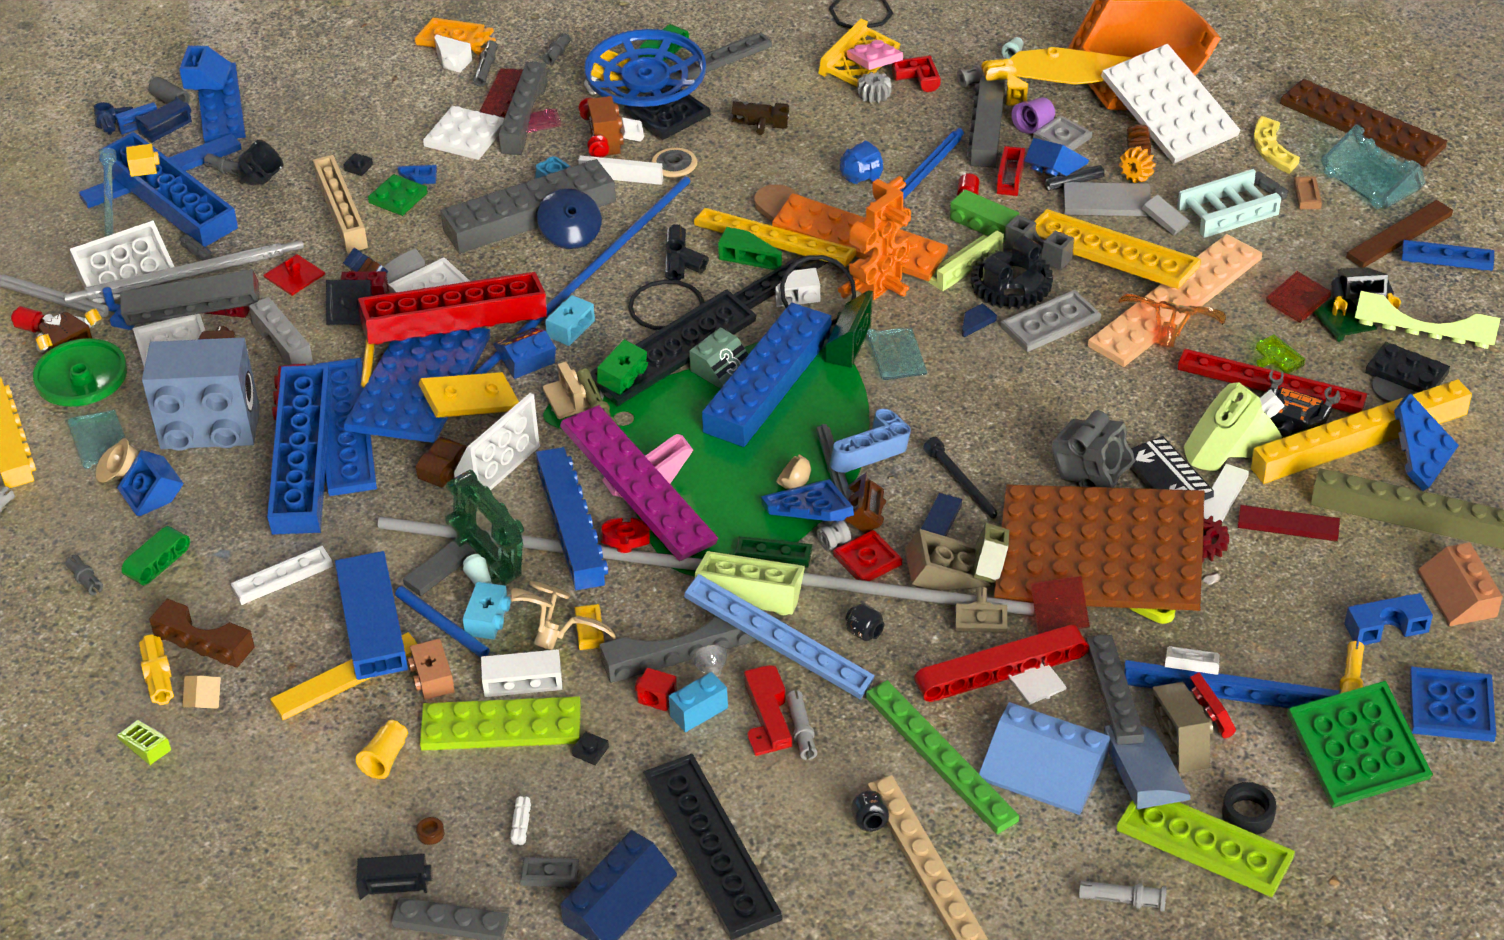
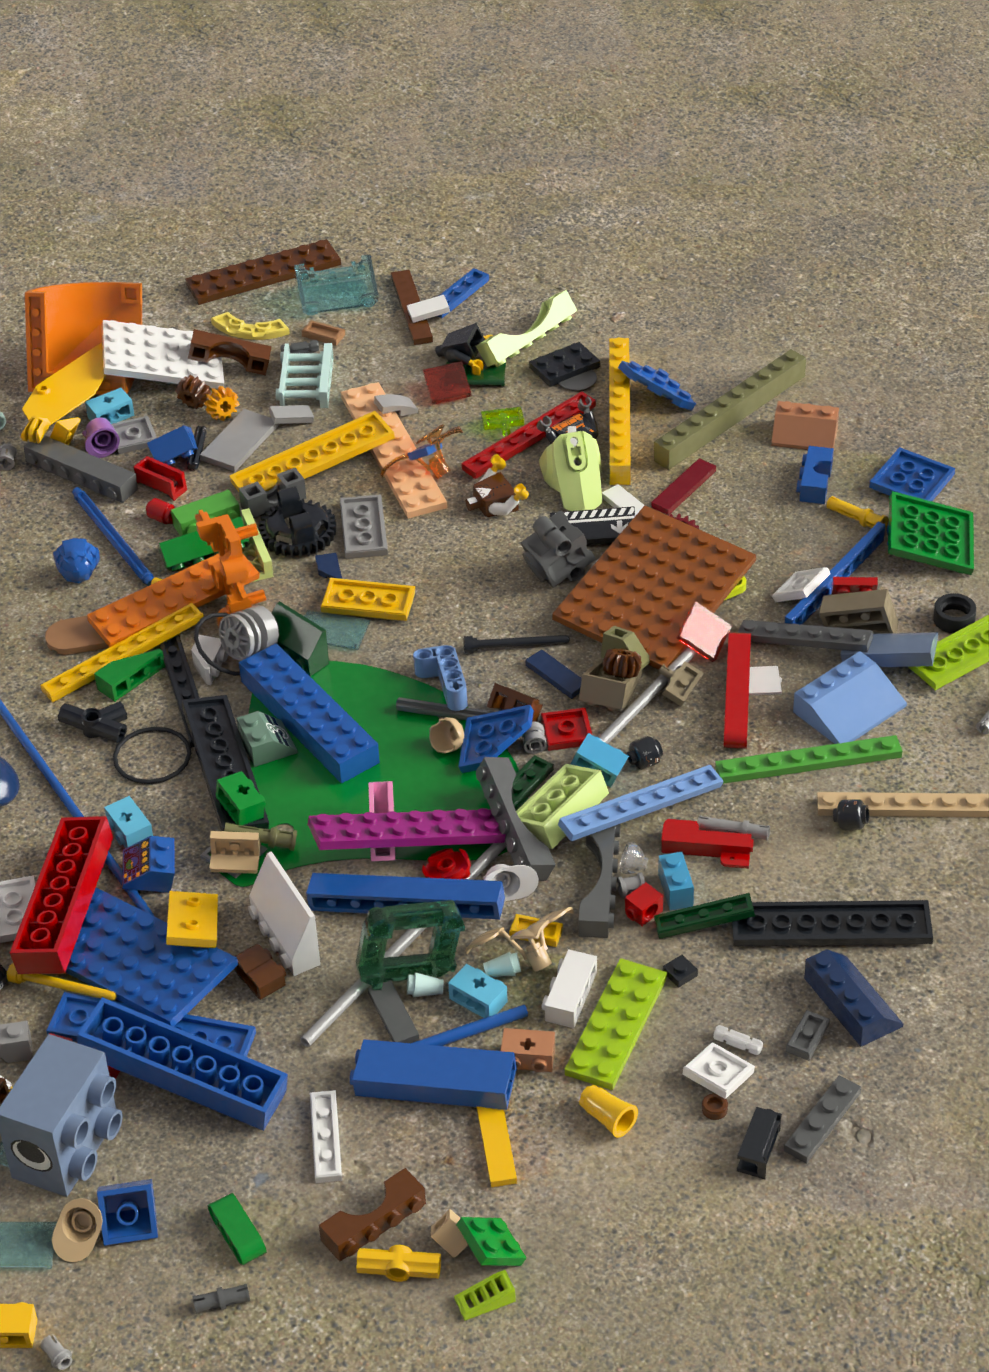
camera: 65 degrees left, 0 degrees up
(195, 718) = (491, 1241): none -> green plate
(472, 817) = (718, 1070): none -> white tile
(527, 616) = (504, 965): none -> light aqua cone
(627, 580) = (517, 880): none -> white piece
(664, 739) = (704, 915): none -> dark green tile
(675, 667) = (629, 884): none -> light grey bush
(741, 526) = (496, 780): none -> dark grey arch
(825, 290) = (248, 632): none -> light grey wheel
(825, 588) = (600, 756): none -> dark azure brick
(941, 227) = (189, 548): none -> green slope
(949, 359) = (368, 599): none -> yellow plate
(958, 553) = (622, 663): none -> reddish brown gear
(1080, 106) = (112, 406): none -> medium azure brick
(1153, 306) = (422, 451): none -> blue tile
(1158, 386) = (494, 493): none -> torso
(1199, 121) = (251, 355): none -> reddish brown arch
(1240, 277) = (398, 403): none -> light grey slope
(1396, 241) = (428, 308): none -> white tile

